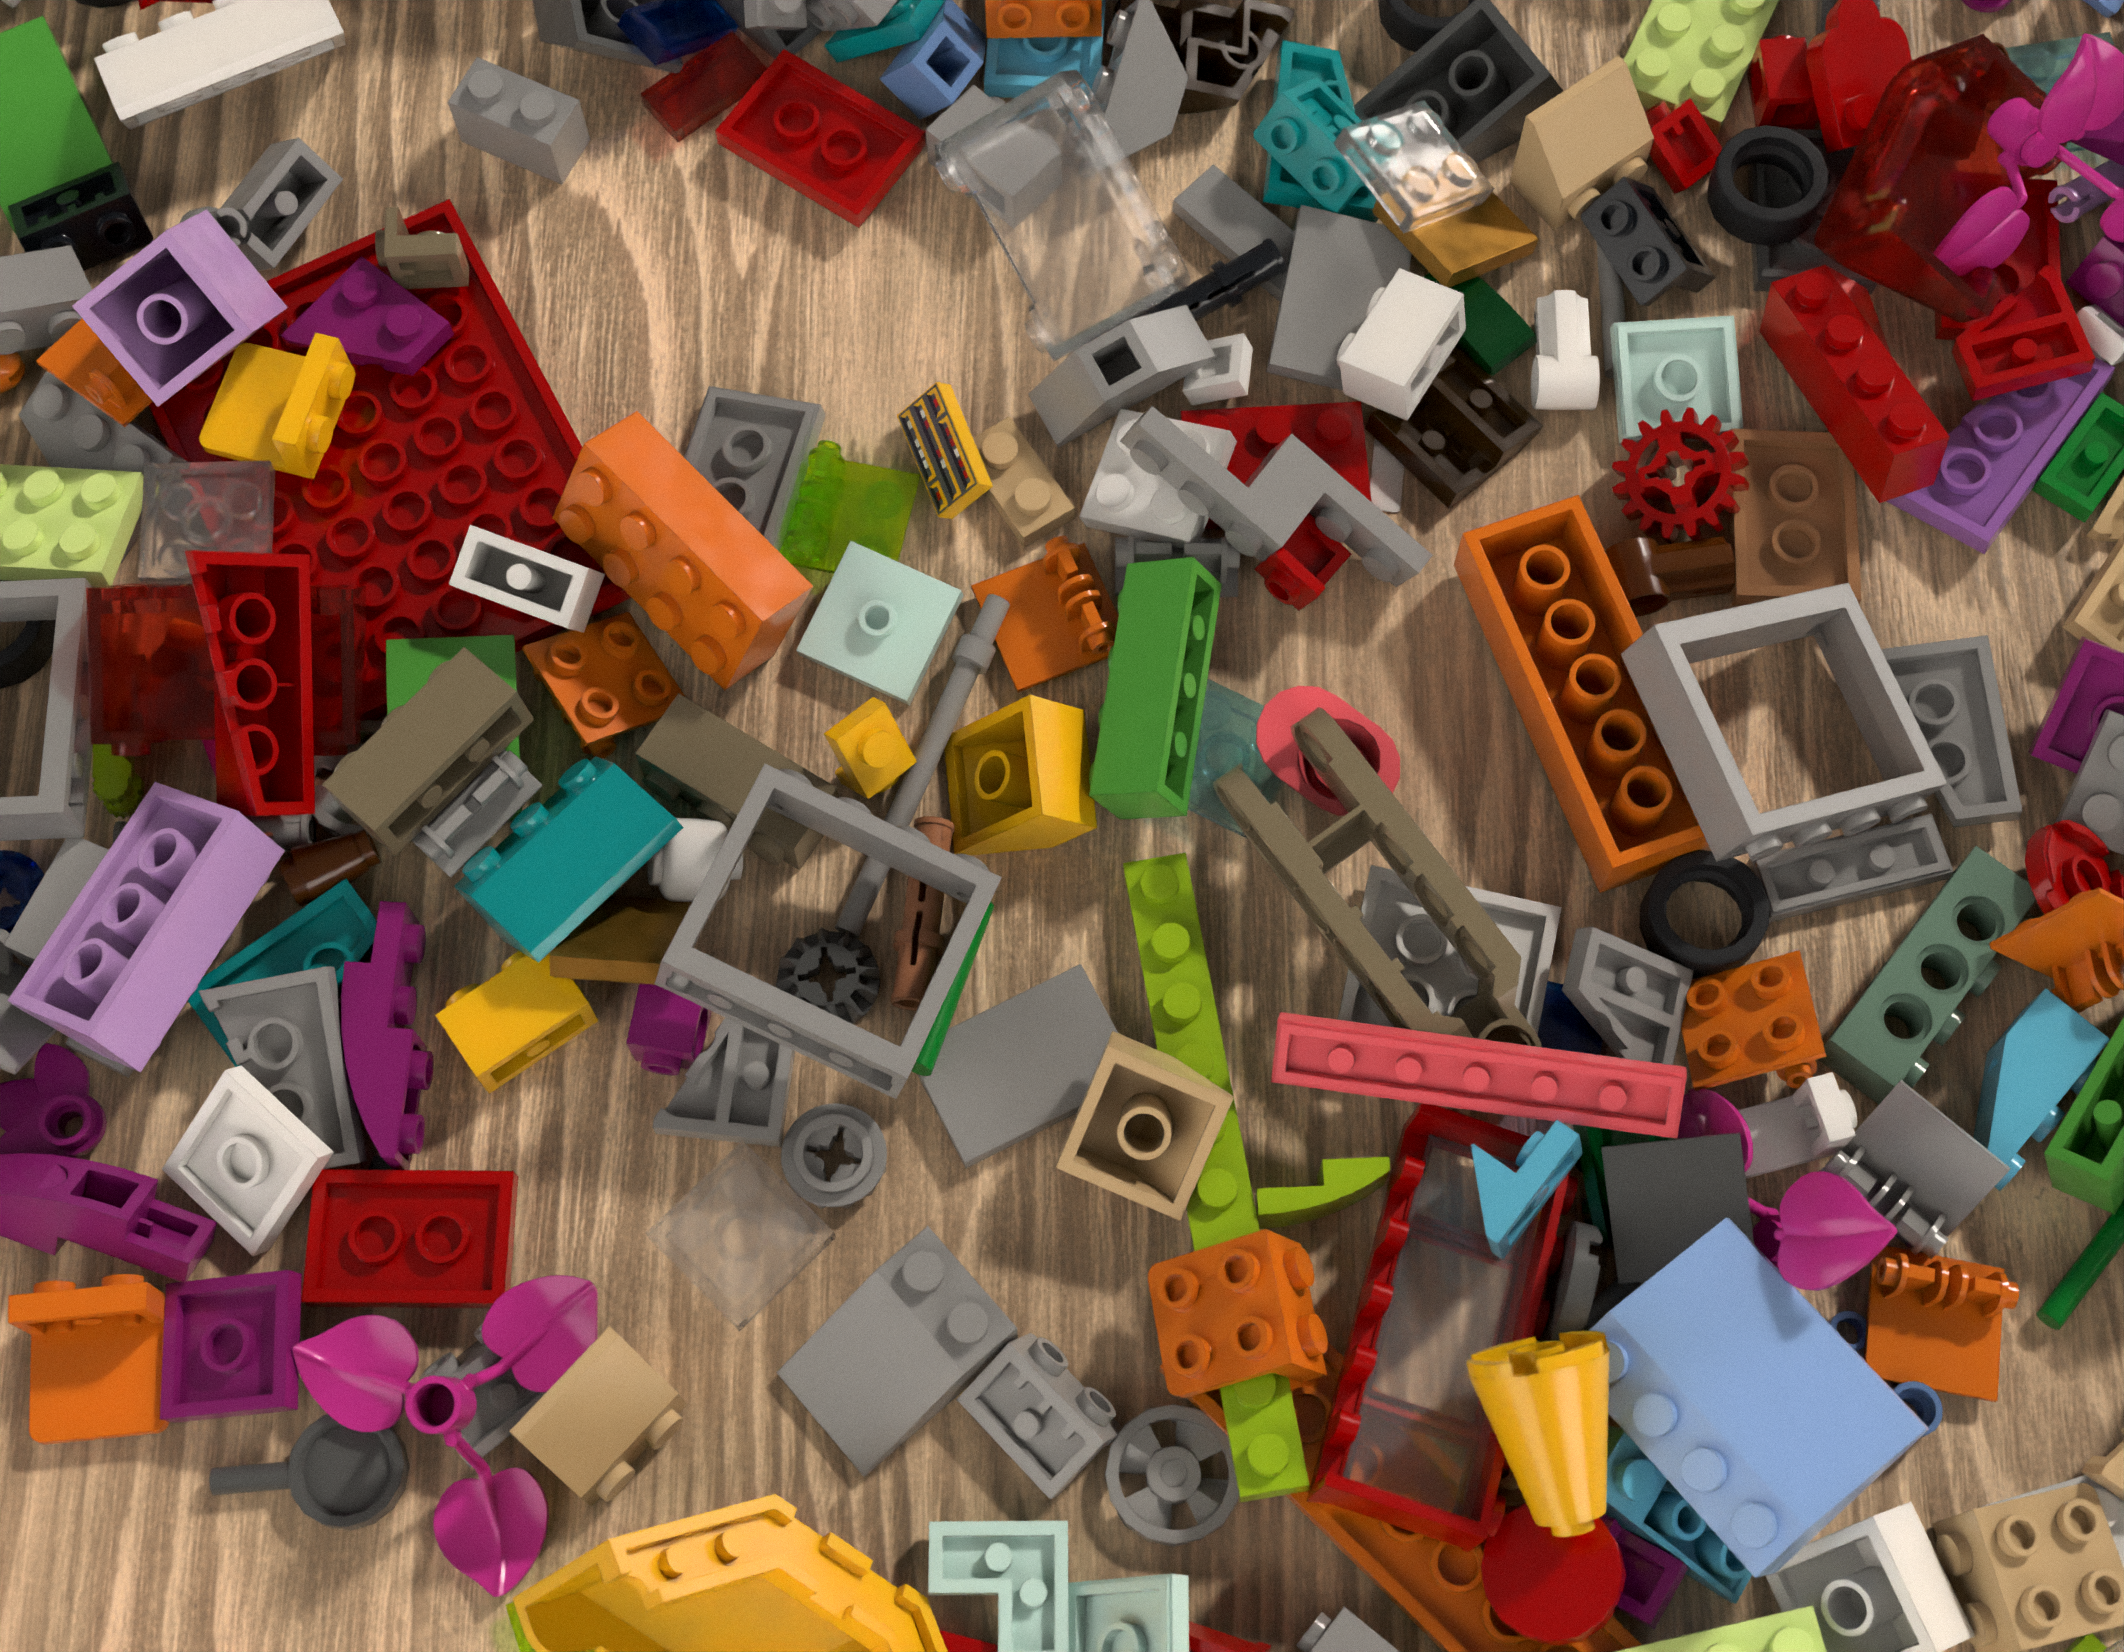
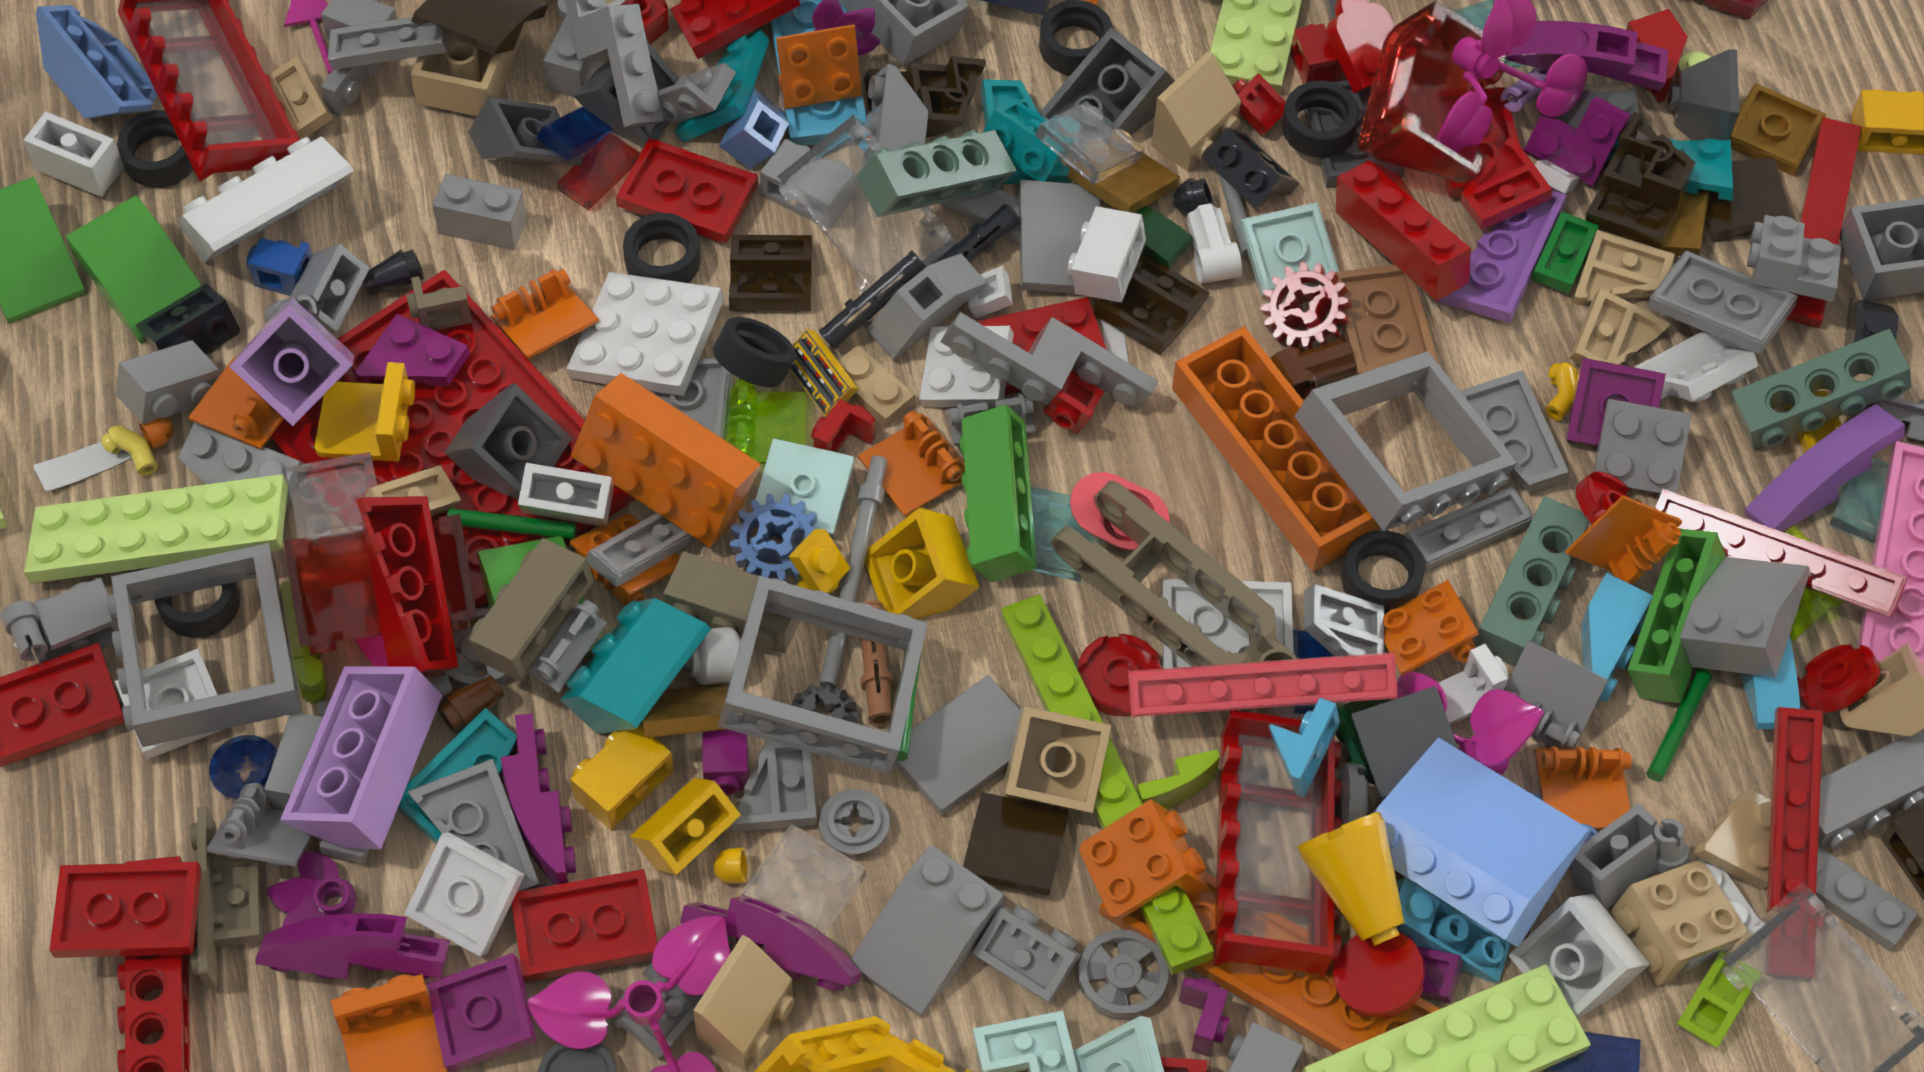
camera: 15 degrees left, 10 degrees down
(220, 149) = (277, 264): none -> blue brick
(333, 535) = (427, 483): none -> tan plate
(381, 188) = (394, 273): none -> black cone
(449, 603) = (515, 524): none -> green bar
(467, 475) = (504, 438): none -> dark grey slope
(573, 293) = (543, 317): none -> orange hinge
(583, 1119) = (685, 825): none -> yellow brick
(614, 678) = (638, 549): none -> light grey tile
(643, 1188) = (731, 866): none -> yellow hinge
(692, 1327) = (788, 940): none -> magenta slope
(710, 345) = (647, 332): none -> white plate
(755, 186) = (667, 227): none -> black tyre
(796, 703) = (761, 548): none -> medium blue gear
(838, 422) = (754, 352): none -> black tyre
(912, 282) = (770, 273): none -> dark brown slope
(943, 542) = (841, 422): none -> red bracket
(984, 389) = (836, 332): none -> black pin
(1058, 1240) = (1016, 843): none -> dark brown slope
(1171, 176) = (935, 172): none -> sand green brick
(1269, 979) = (1106, 667): none -> red tile
(1286, 1587) = (1210, 998): none -> magenta bracket
(1550, 271) = (1191, 195): none -> black plate
(1981, 1451) = (1627, 853): none -> light grey hinge
(2050, 658) = (1565, 377): none -> yellow arm

